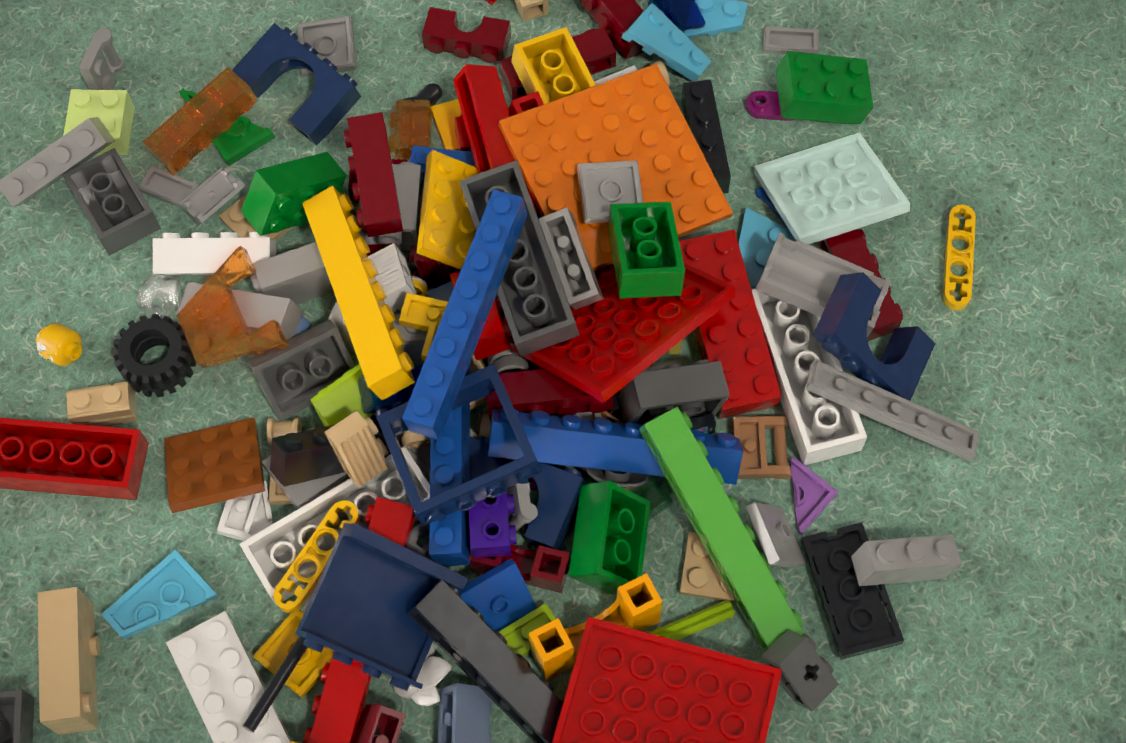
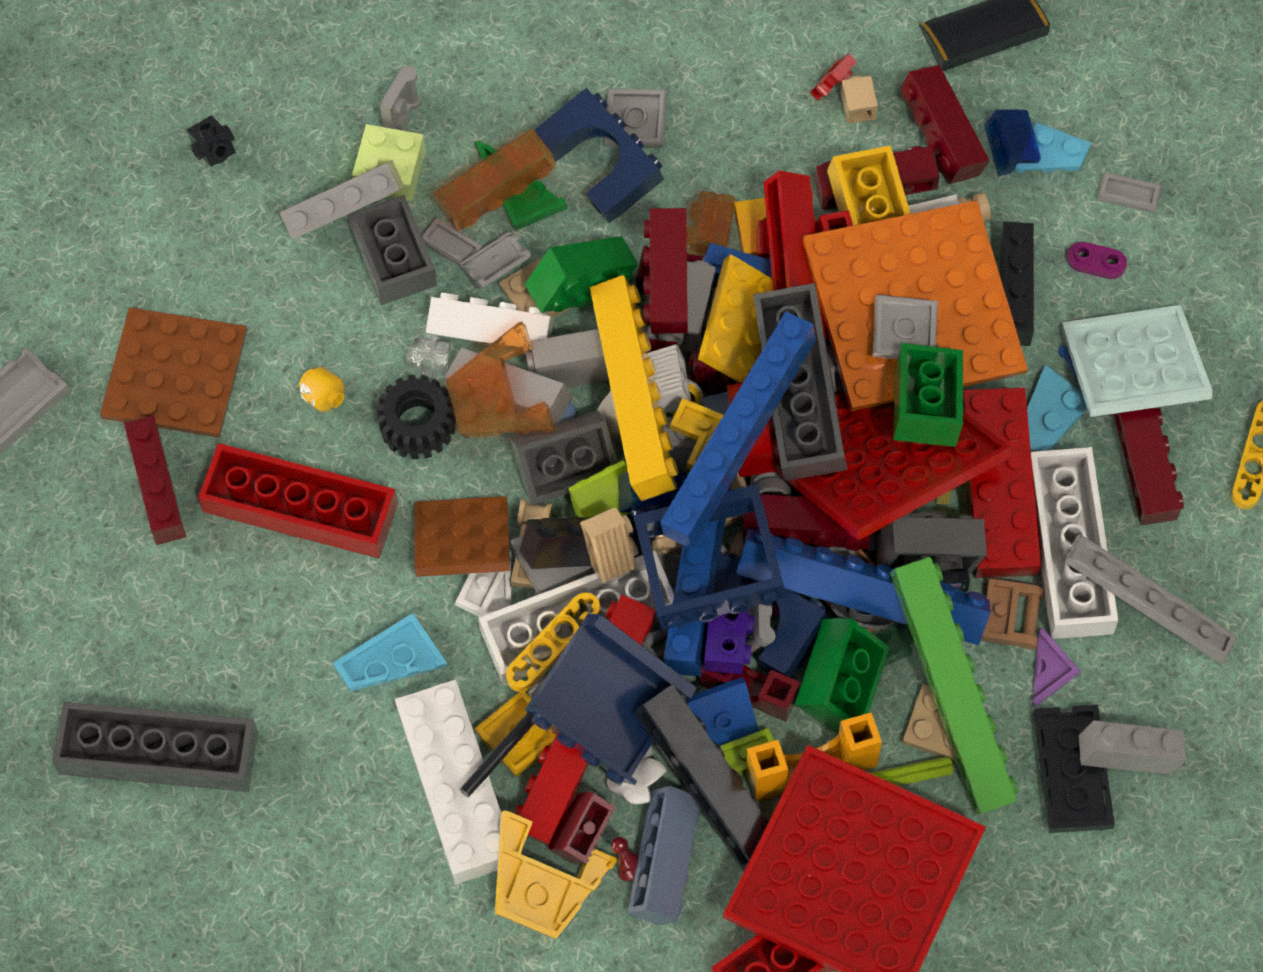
camera: 10 degrees right, 0 degrees up
(67, 661) = (298, 700): tan brick -> none
(102, 405) = (358, 457): tan brick -> none
(430, 92) = (737, 187): black arm -> none
(486, 42) = (805, 142): dark red arch -> none
(571, 258) = (852, 391): light grey brick -> none
(666, 40) = (992, 170): medium azure wing -> none
(775, 535) = (1007, 701): light grey plate -> none
(804, 673) = (1007, 833): dark grey brick -> none
(809, 275) = (1105, 460): light grey gear -> none
(823, 88) = (1151, 252): green brick -> none
(844, 334) = (1113, 513): dark blue arch -> none

